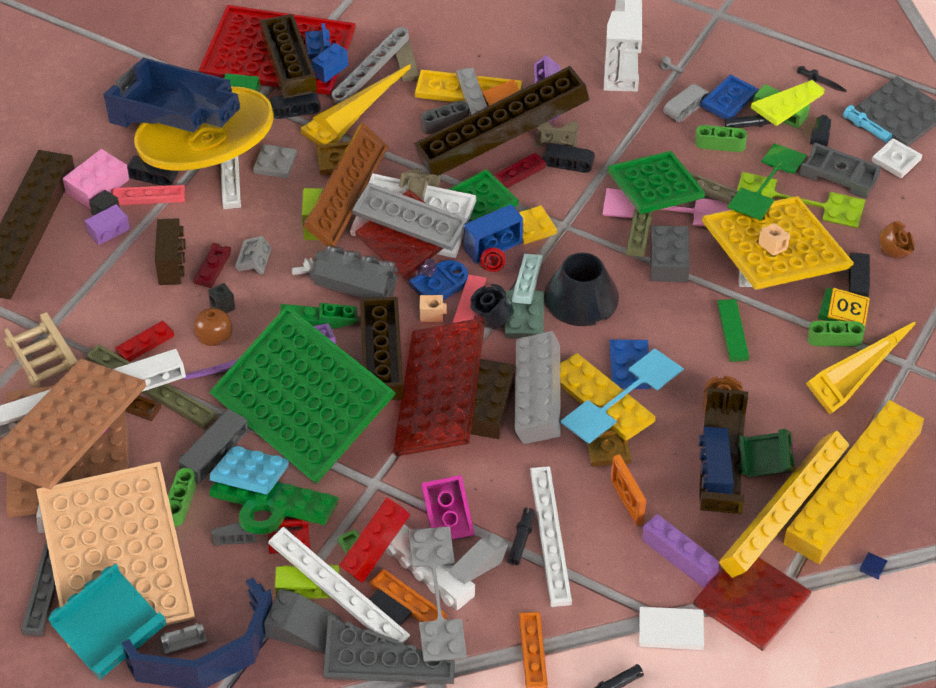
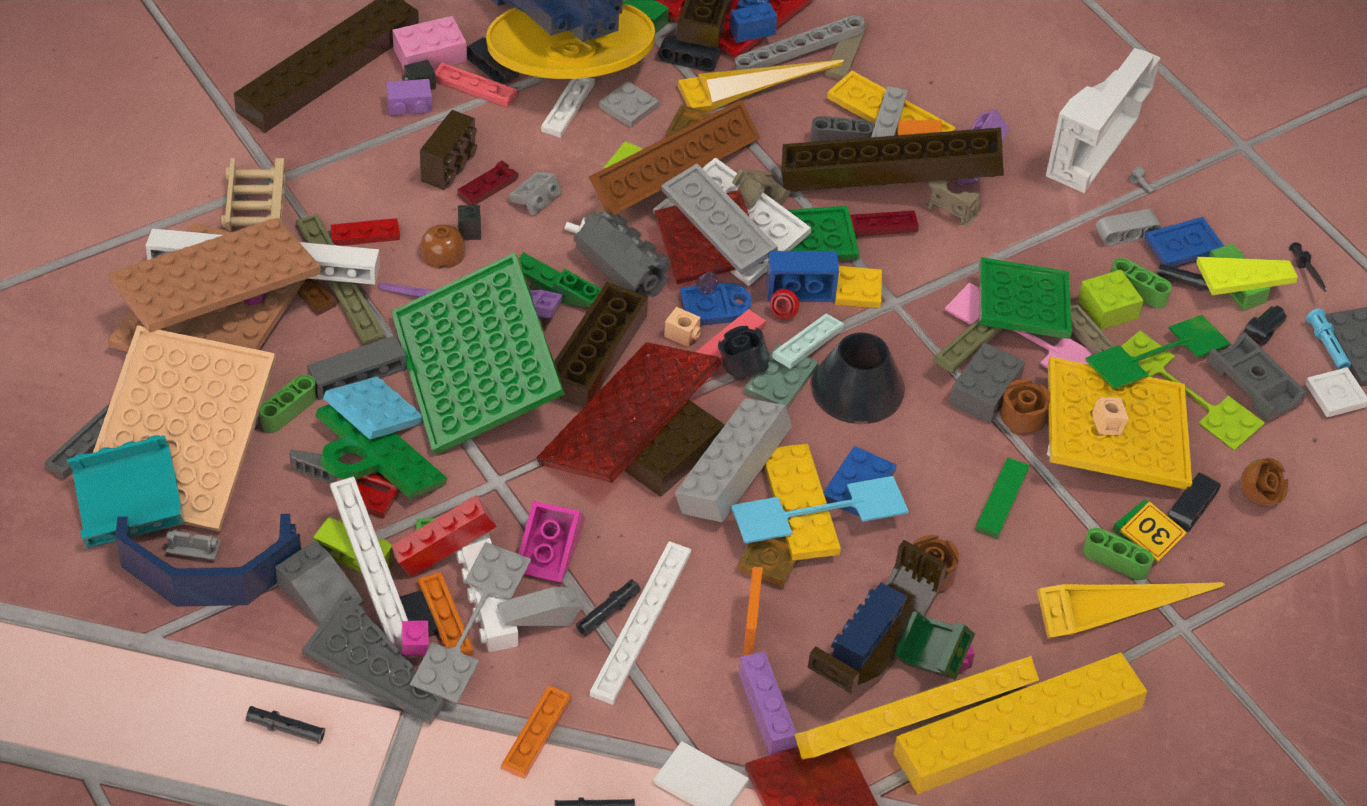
camera: 25 degrees right, 0 degrees up
(404, 625) = (414, 638): none -> dark pink brick
(568, 157) = (948, 231): black beam -> none
(707, 259) = (1025, 406): none -> dark orange brick
(710, 158) = (1110, 299): none -> lime brick

